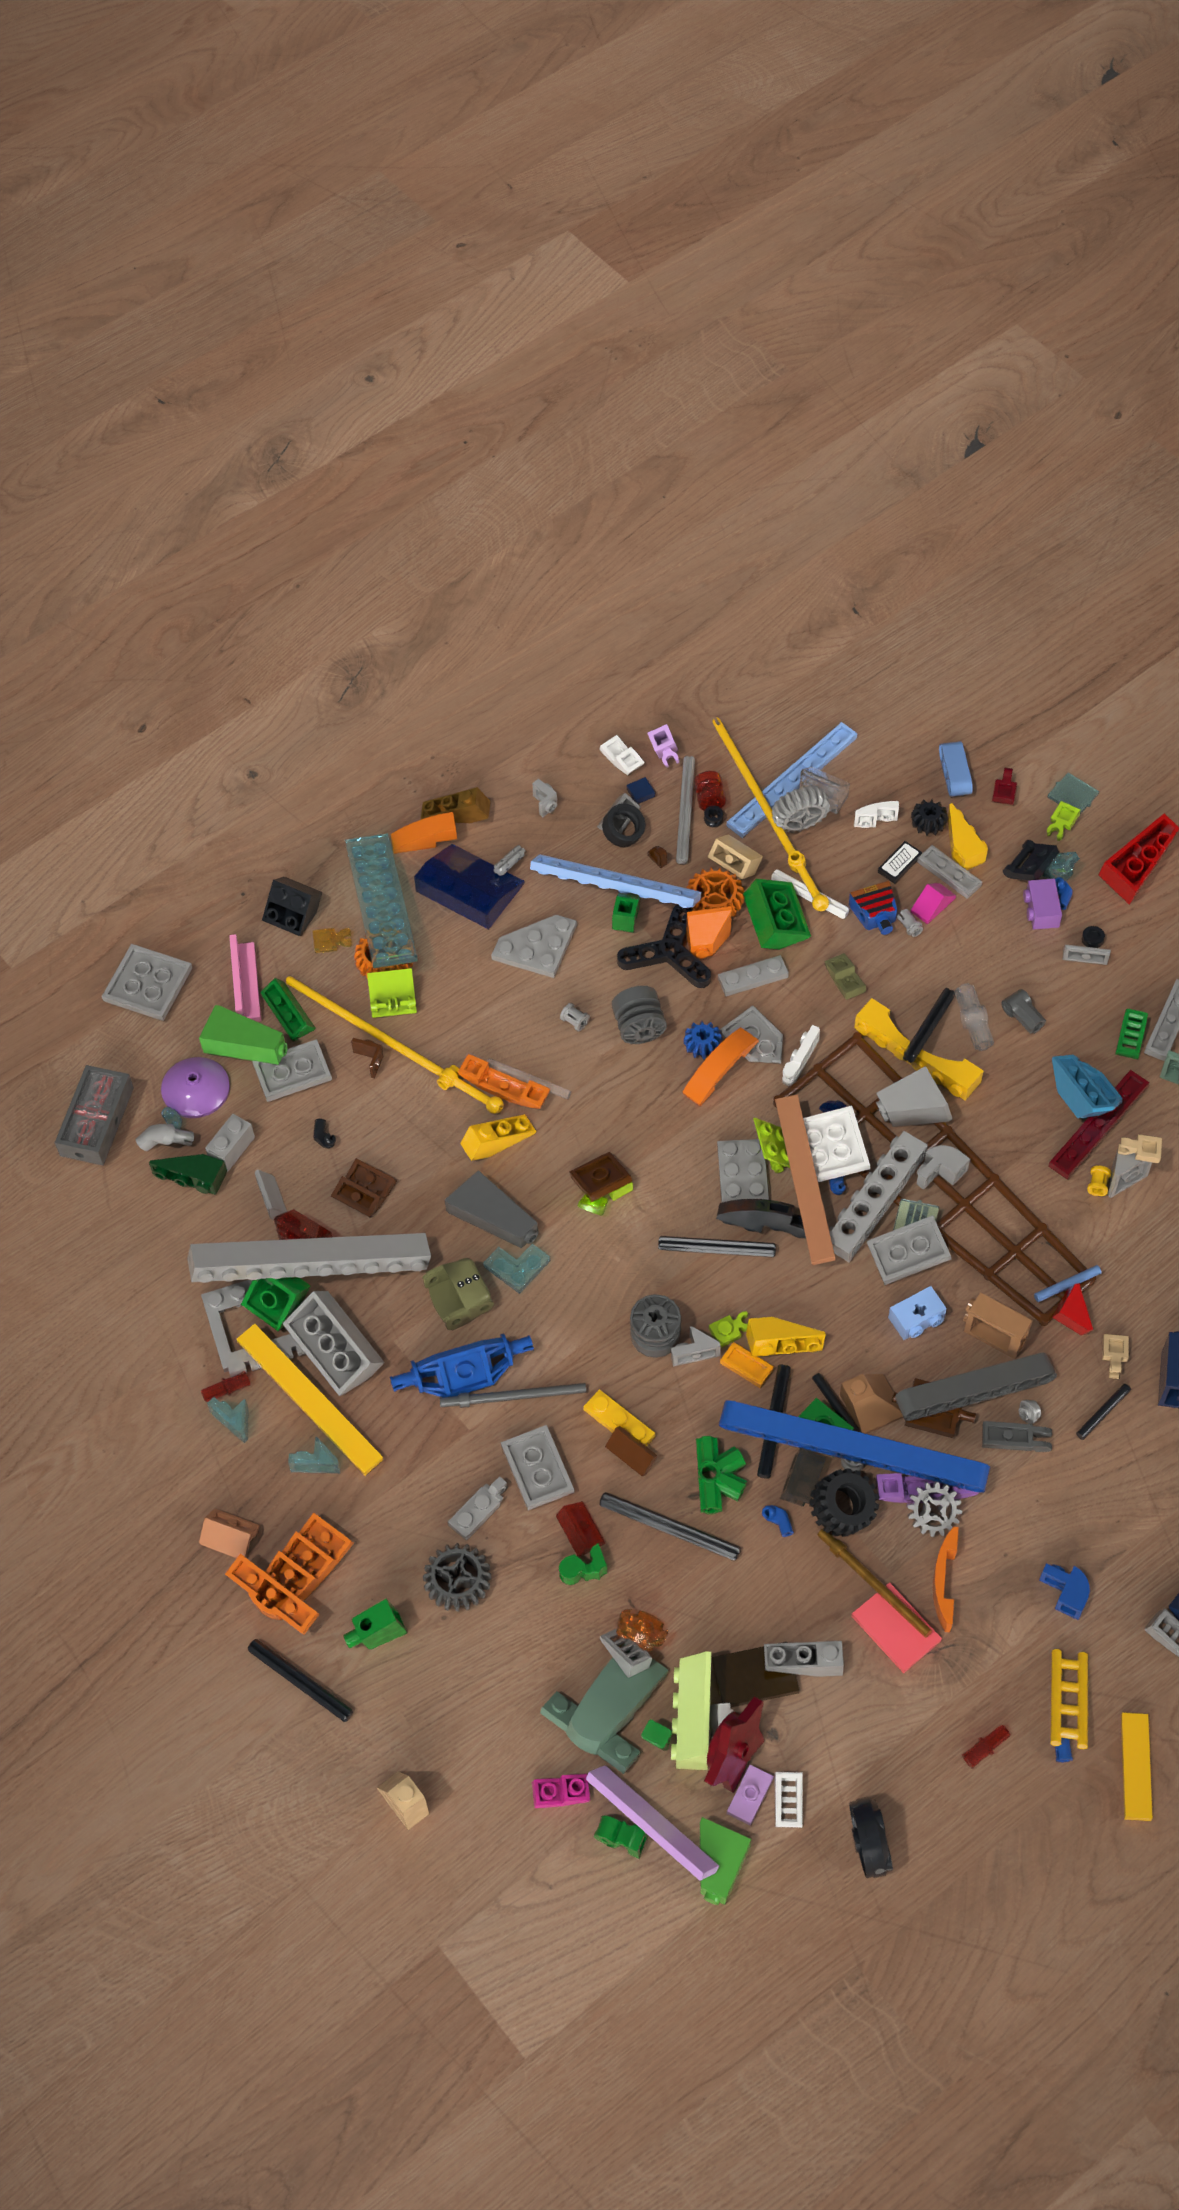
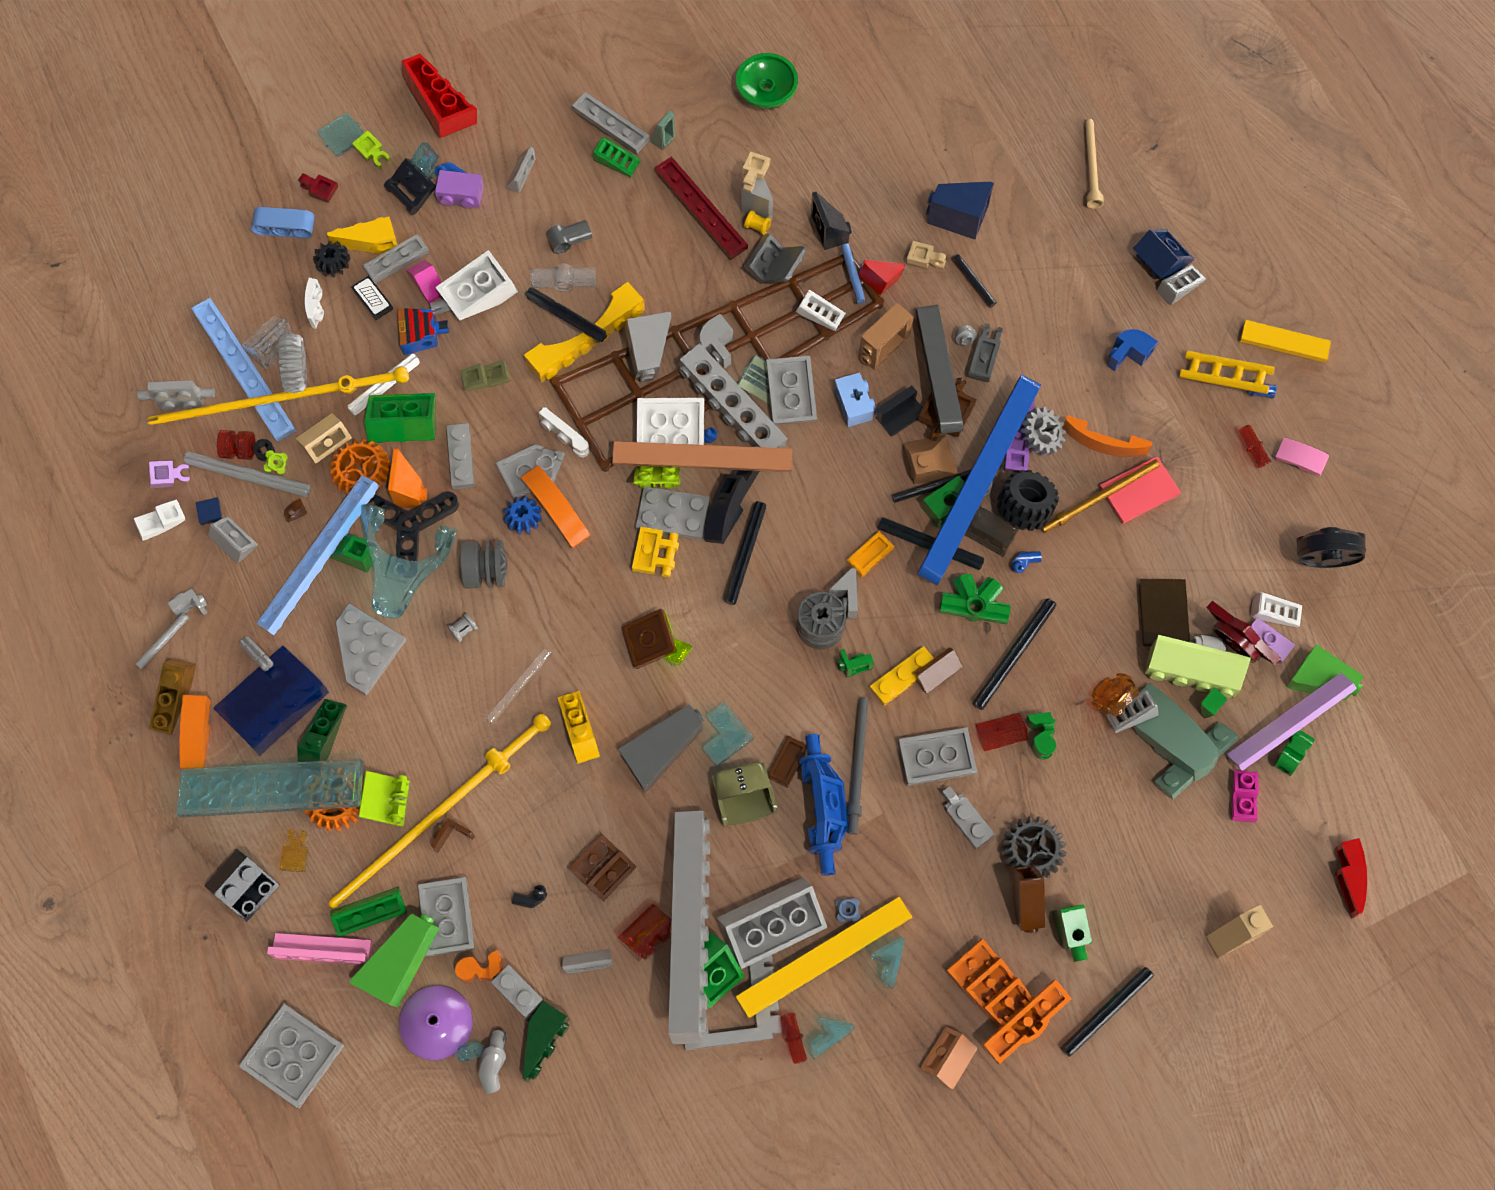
camera: 80 degrees left, 10 degrees up
(94, 1115) = (448, 1132): brick -> none
(247, 1107) = (469, 969): none -> orange leg
(361, 1406) = (853, 905): none -> sand blue plate
(398, 1571) = (1028, 898): none -> reddish brown slope
(440, 929) = (322, 732): none -> dark green slope
(490, 1919) = (1352, 875): none -> red slope
(494, 1325) = (787, 761): none -> reddish brown tile
(502, 1085) = (521, 709): orange slope -> none
(506, 789) = (162, 640): none -> light grey bar
(608, 945) = (395, 577): none -> clear light blue animal
(618, 1370) = (858, 664): none -> green bracket
(633, 814) = (250, 547): black tyre -> none
(695, 1157) = (648, 549): none -> yellow plate
(698, 823) = (281, 462): none -> lime plate
(728, 1330) = (831, 562): lime plate -> none
(744, 731) = (176, 395): none -> light grey plate
(777, 1336) = (851, 521): yellow slope -> none
(805, 1658) = (1162, 564): light grey slope -> none
(831, 1105) = (628, 420): clear blue tile -> none
(918, 1360) = (899, 411): none -> black panel
(935, 943) = (477, 287): none -> white slope
(987, 1801) = (1303, 456): none -> bright pink slope
(1016, 1242) = (818, 301): none -> white slope
(1056, 1201) = (774, 262): none -> dark grey bracket
(1084, 1087) = (669, 206): dark azure wedge -> none
(1093, 937) = (504, 160): black tile -> none
(1117, 1245) = (829, 223): none -> black slope

